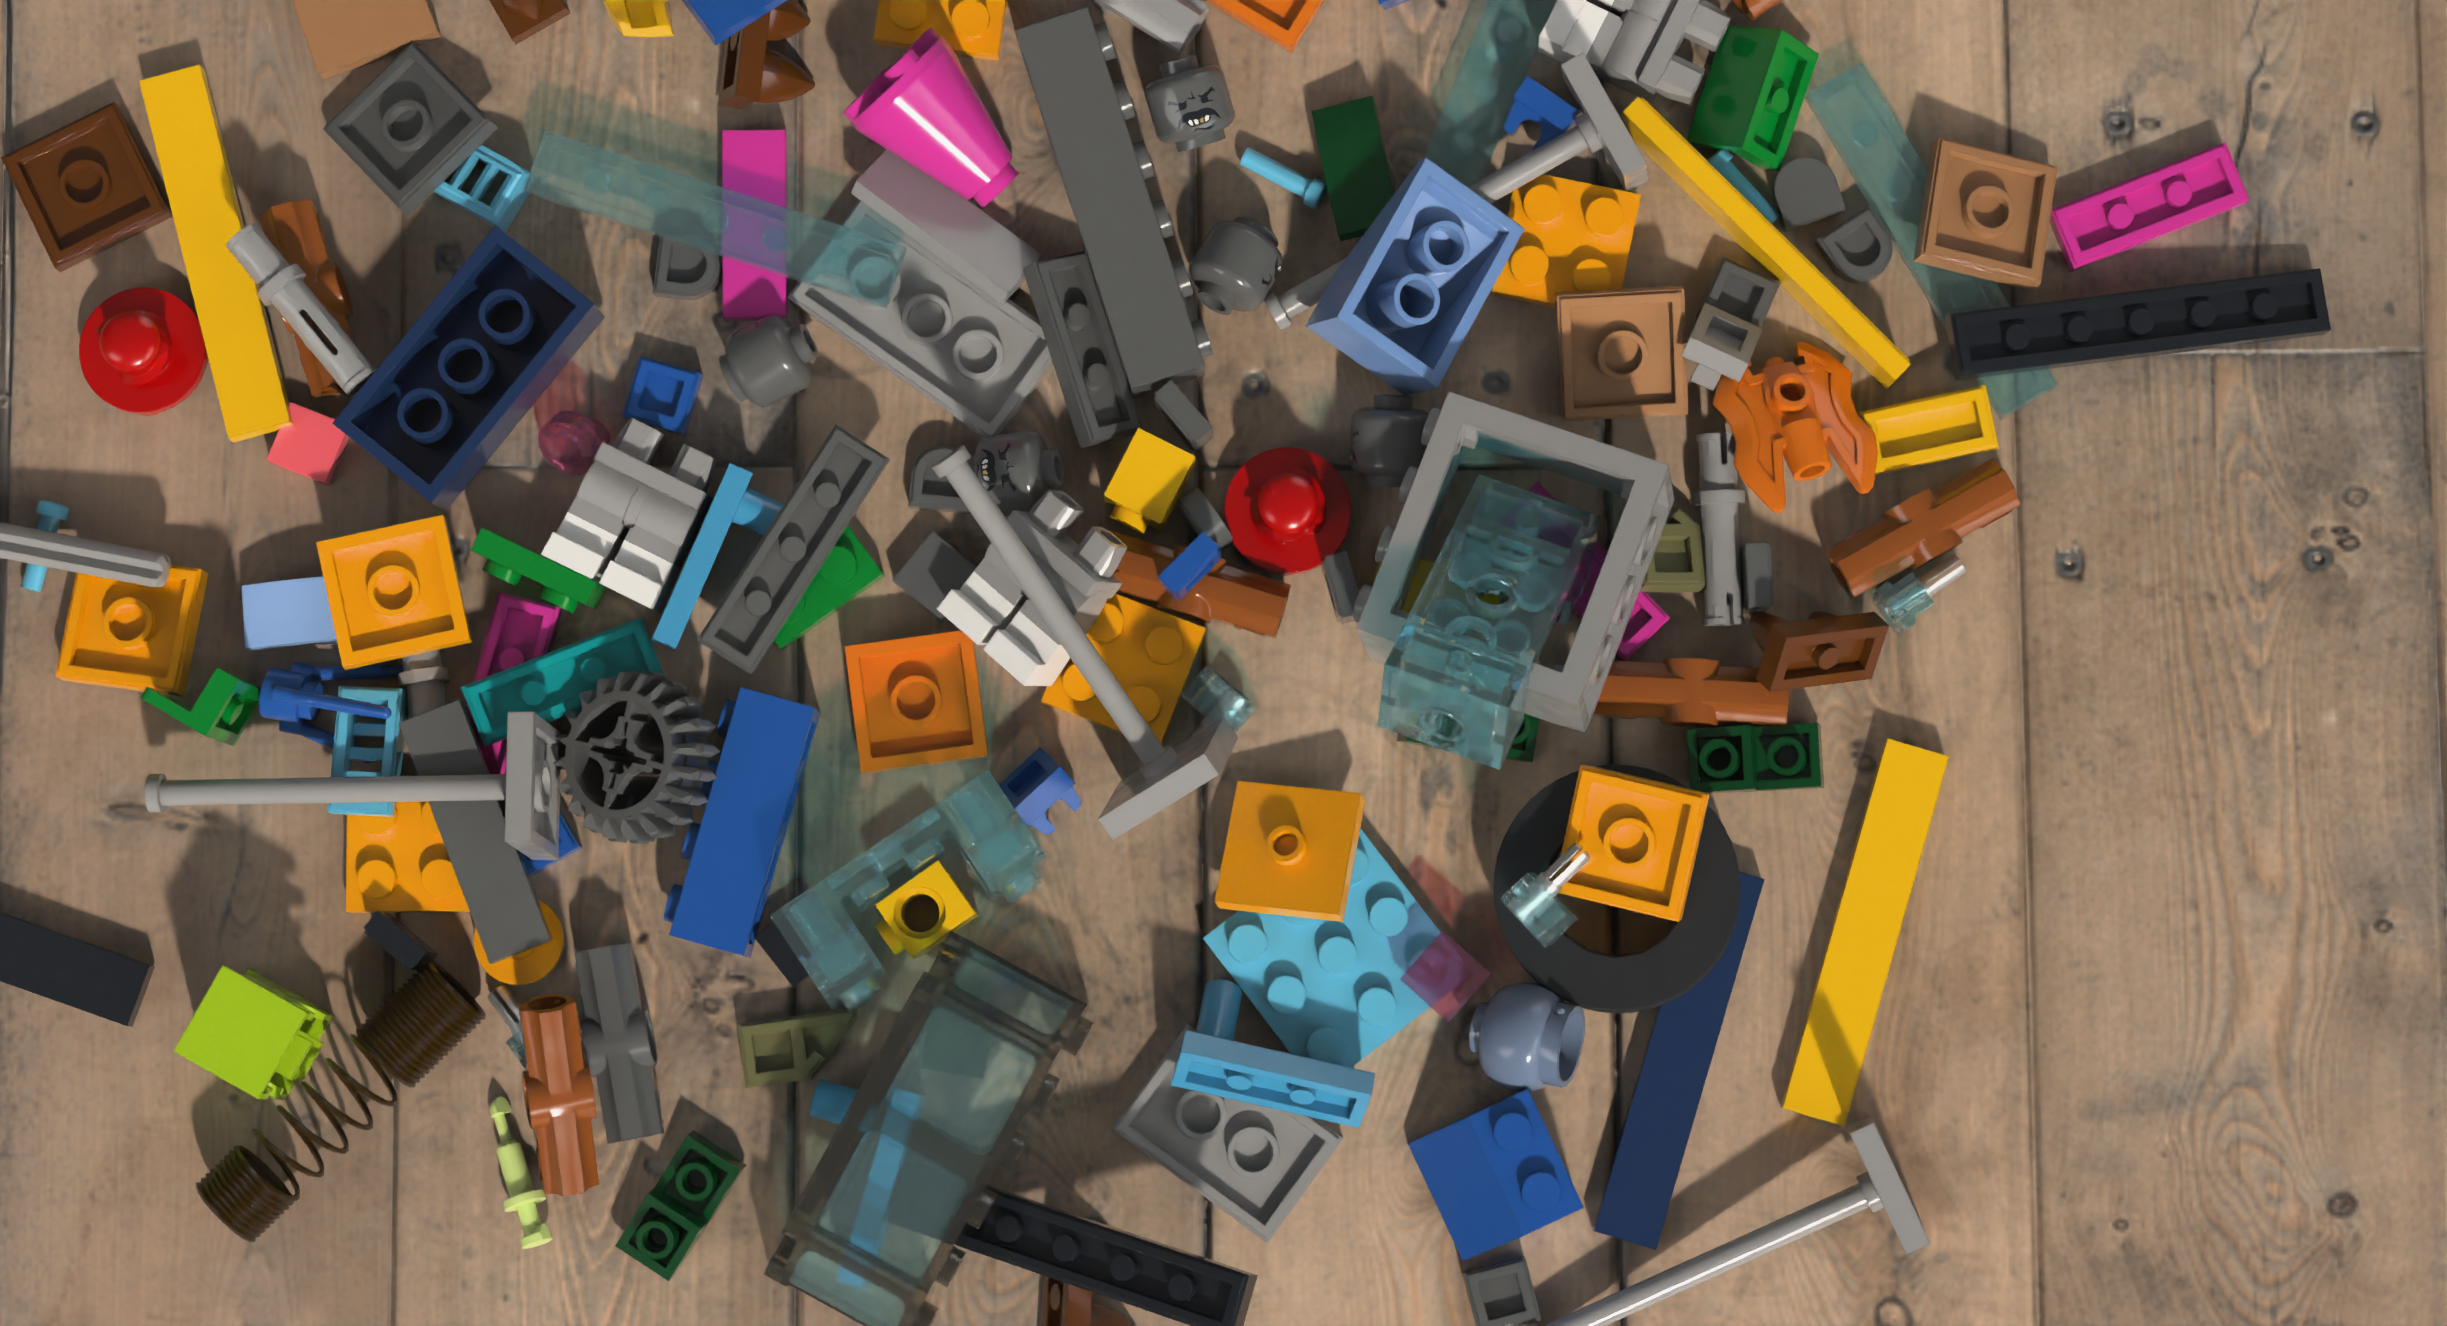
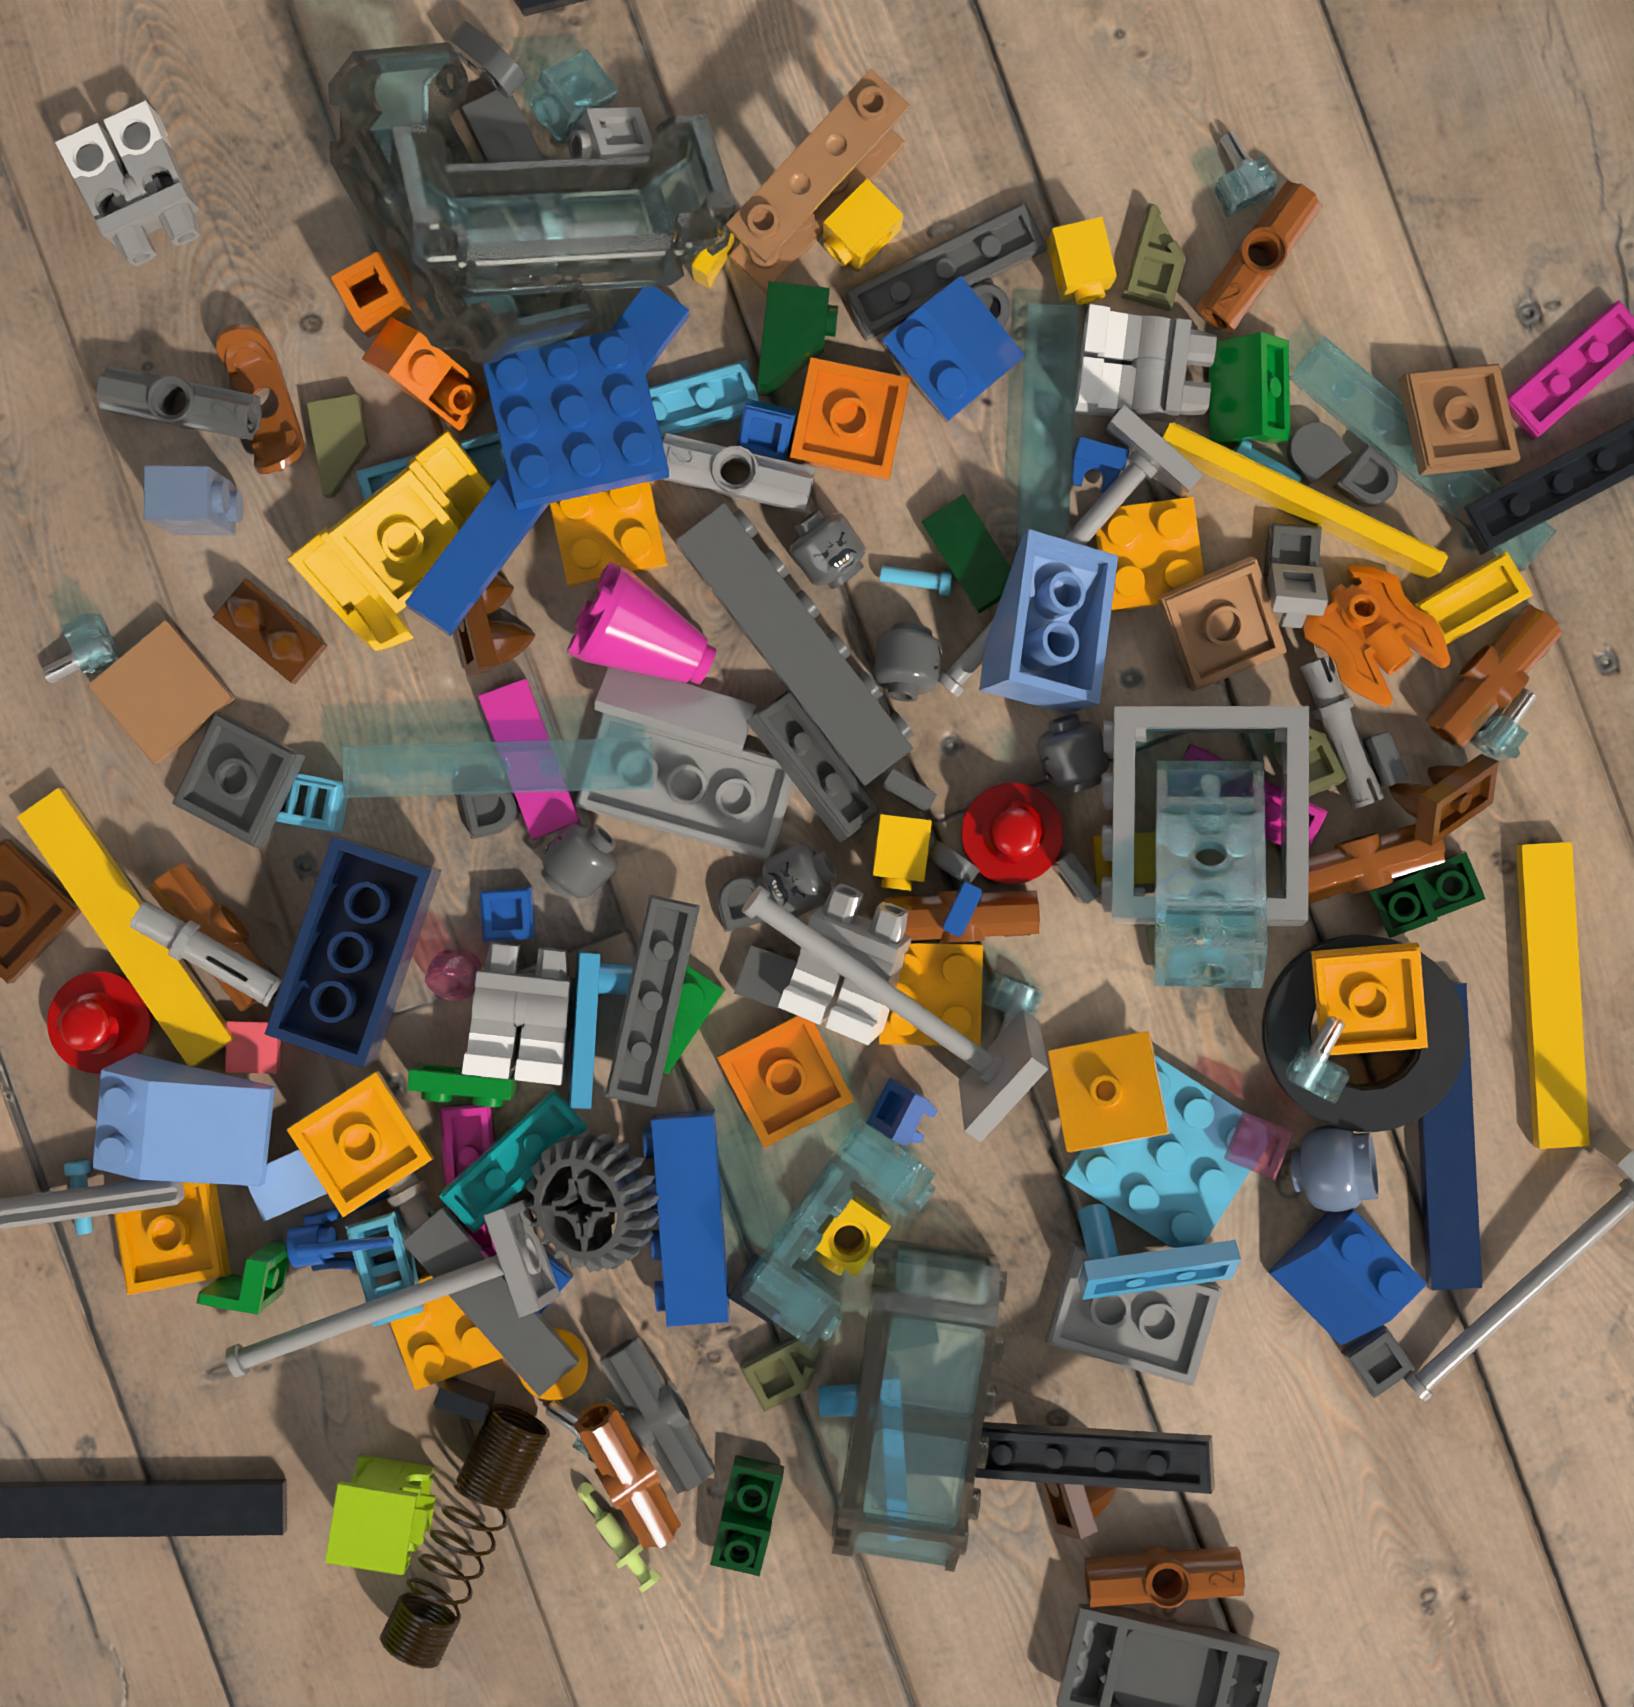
camera: 25 degrees left, 5 degrees up
(197, 497) = (181, 1123): none -> medium blue slope

